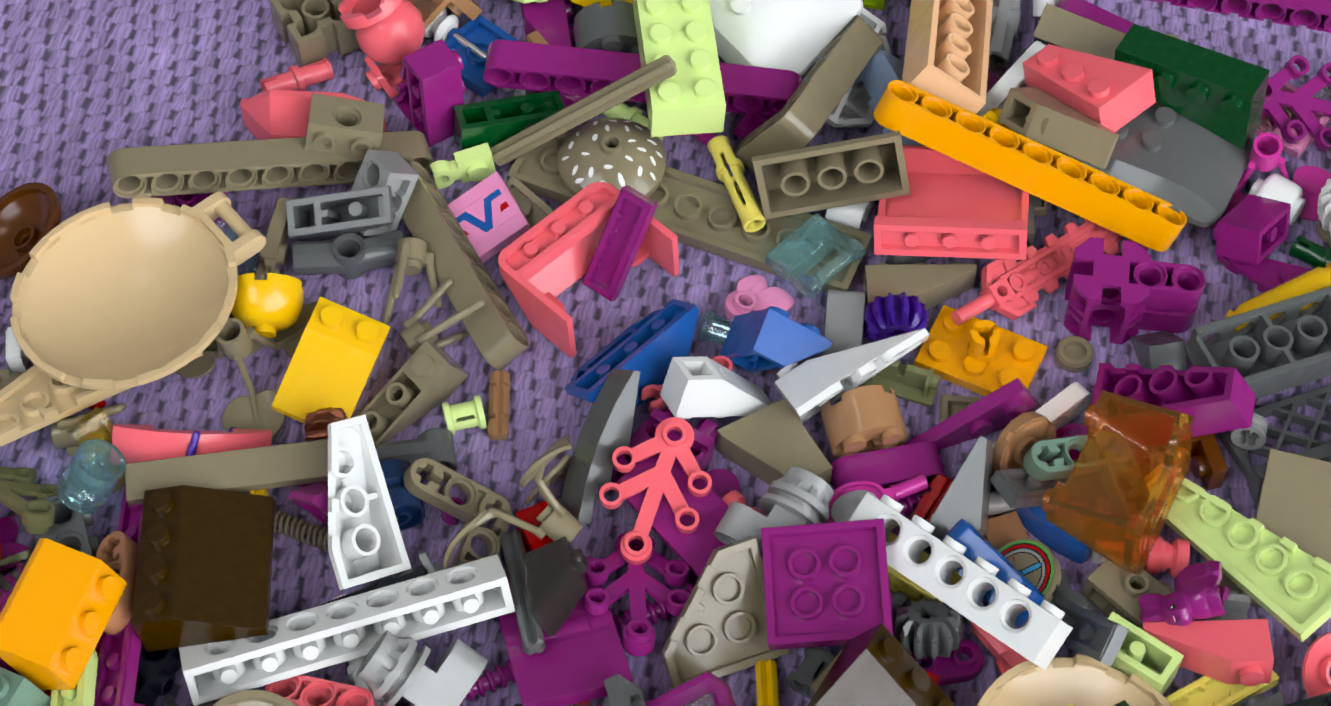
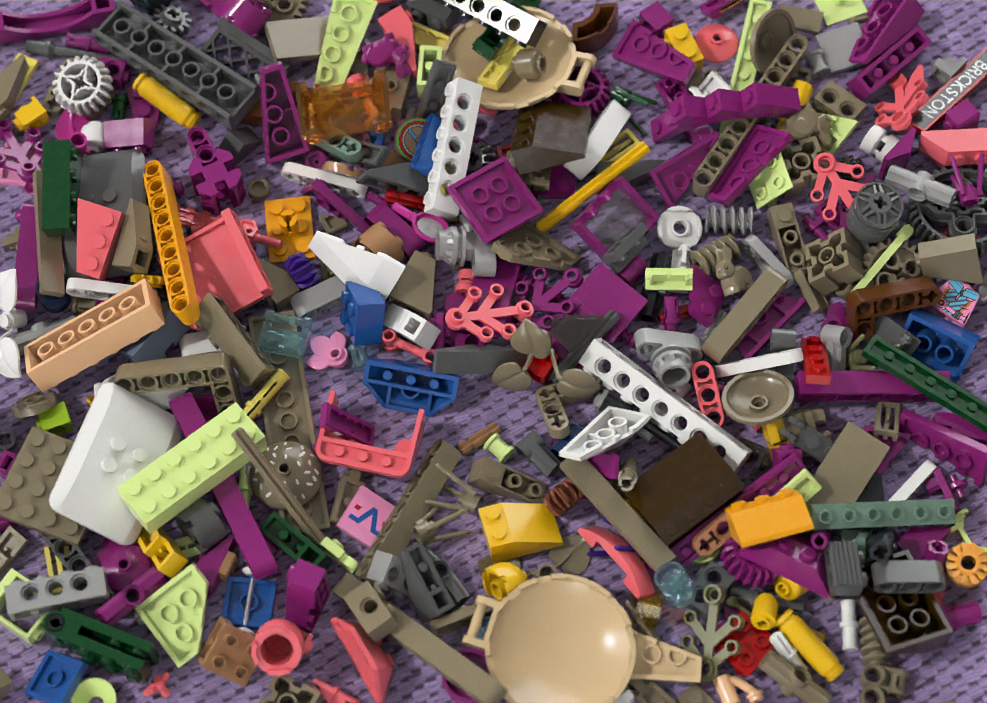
camera: 120 degrees left, 10 degrees up
(280, 507) = (628, 474): none -> dark tan pin

